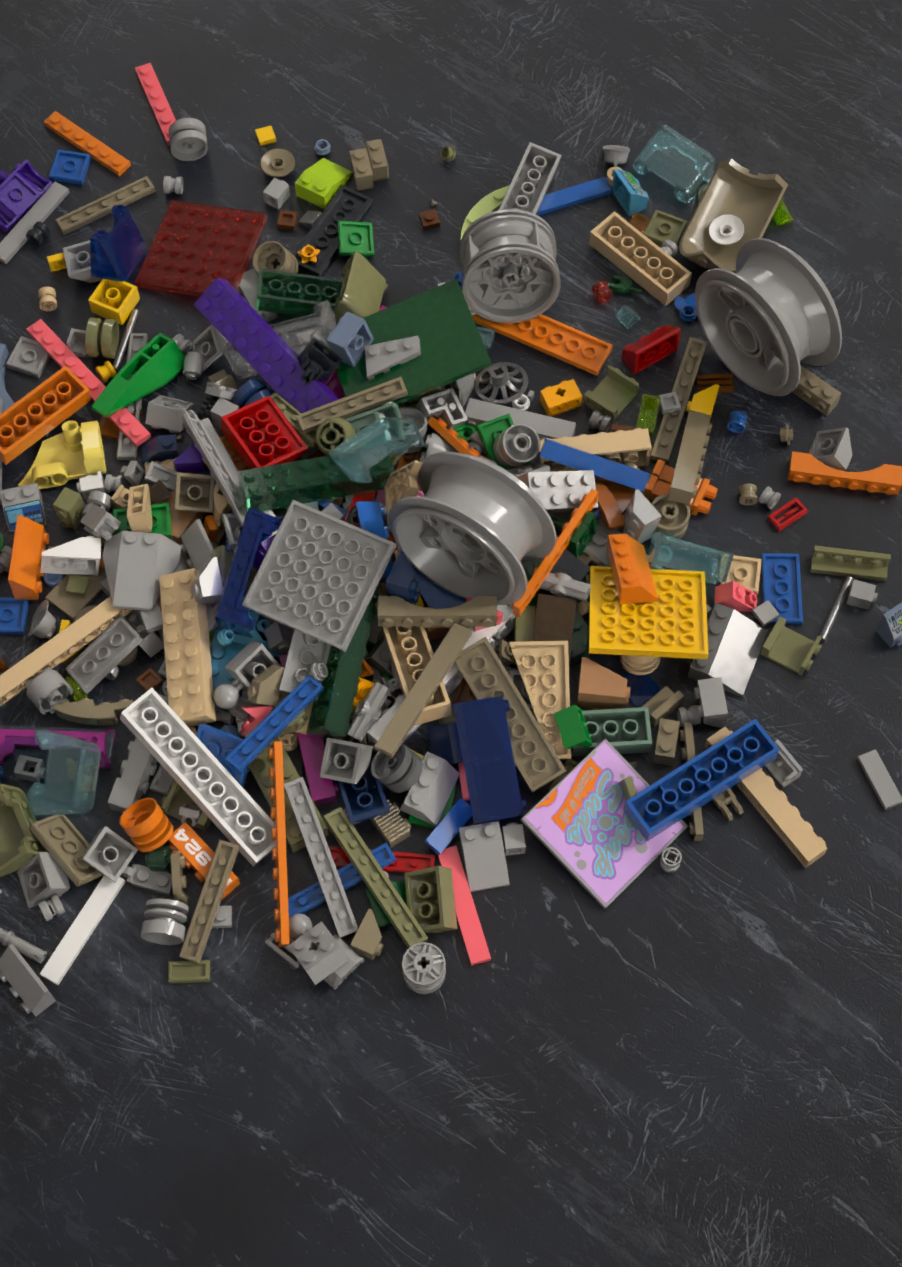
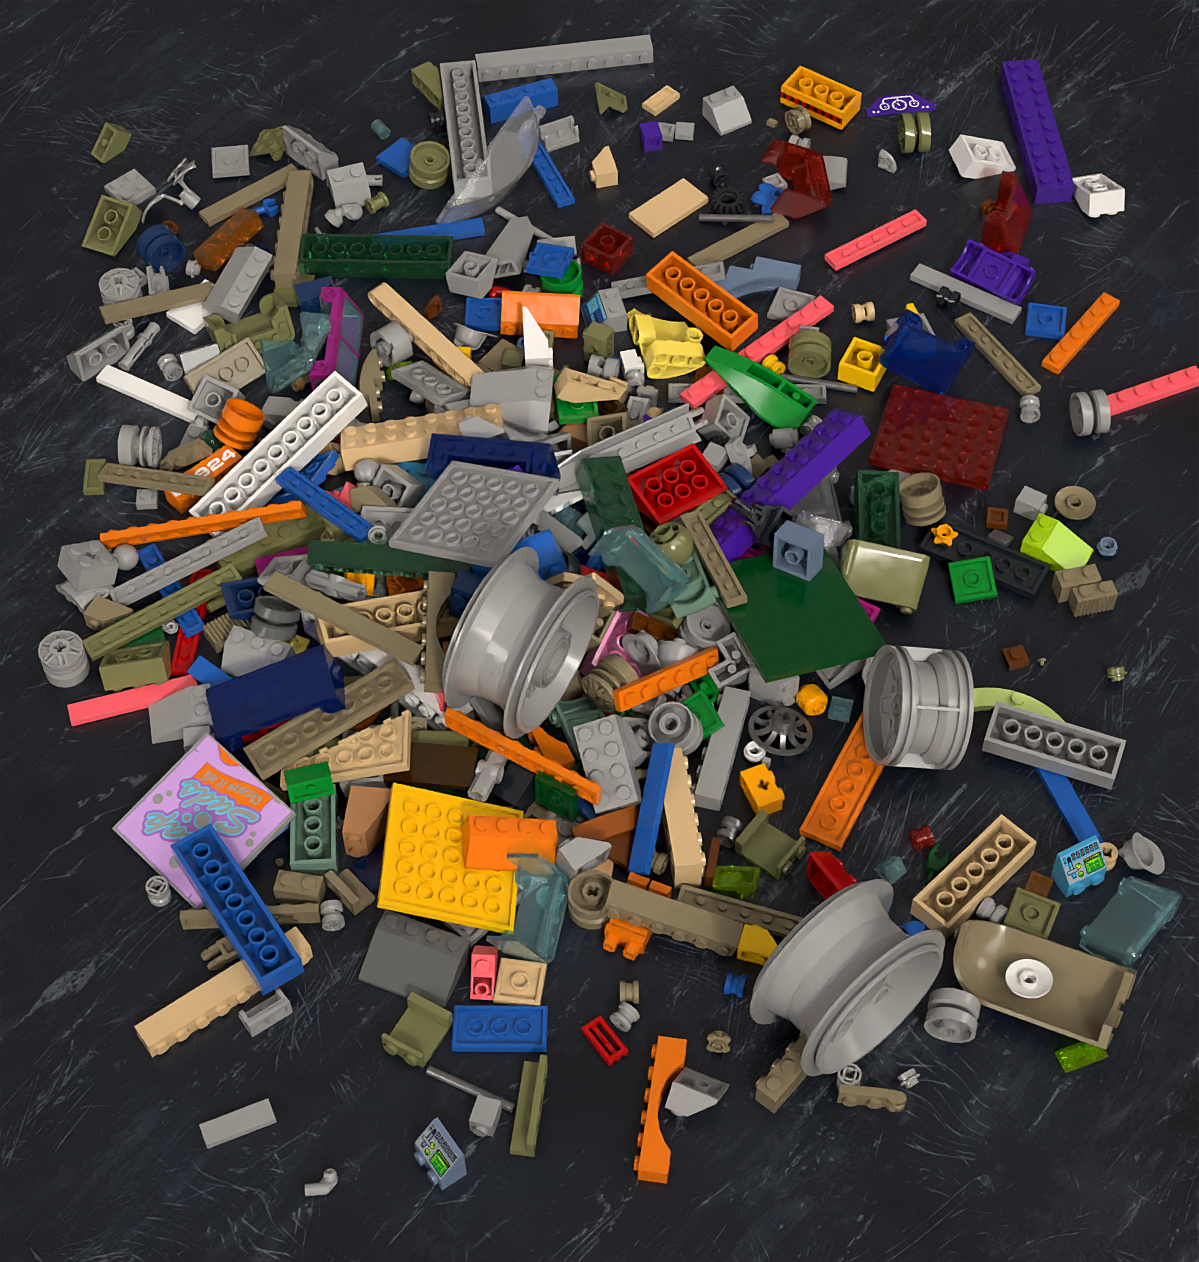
camera: 90 degrees right, 10 degrees down
(100, 522) = (571, 359): light grey hinge -> none
(265, 135) = (1117, 492): yellow tile -> none
(388, 354) = (783, 591): light grey wing -> none
(628, 788) = (233, 835): olive tile -> none
(669, 403) = (755, 903): light grey tile -> none
(712, 702) = (339, 933): light grey slope -> none
(765, 613) = (461, 1003): light grey tile -> none

